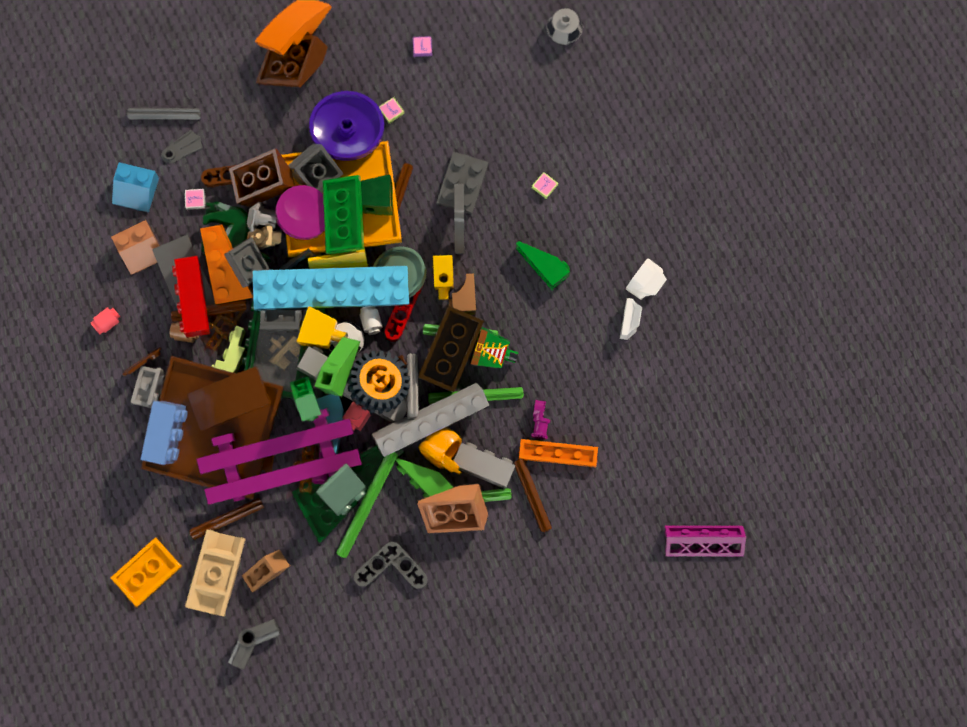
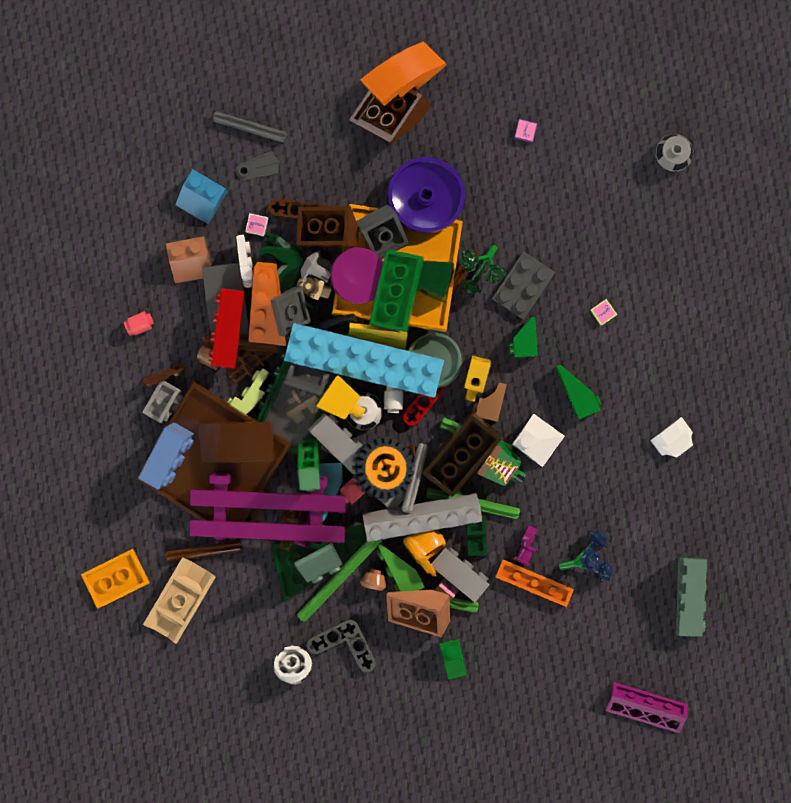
camera: 20 degrees right, 10 degrees up
(192, 232) = (245, 261): none -> white hinge
(261, 633) = (185, 680): dark grey piece -> none
(265, 570) = (226, 612): medium nougat arch -> none
(337, 367) = (348, 444): bright green slope -> none
(345, 602) = (293, 665): none -> white cone
(391, 110) = (475, 189): bright pink tile -> none
(401, 496) = (373, 580): none -> nougat cone
(430, 176) = (493, 274): none -> dark green plant
(459, 218) = (509, 323): dark grey beam -> none
(473, 480) = (447, 588): none -> tile
(479, 231) = (525, 341): none -> green slope
(489, 427) = (476, 539): none -> dark green slope
(502, 549) = (453, 658): none -> green slope
(519, 319) = (538, 440): none -> white slope
(532, 495) = (497, 615): reddish brown axle -> none
(605, 411) = (590, 559): none -> dark blue plant
(630, 319) = (645, 473): white slope -> none
(711, 419) = (691, 596): none -> sand green wedge

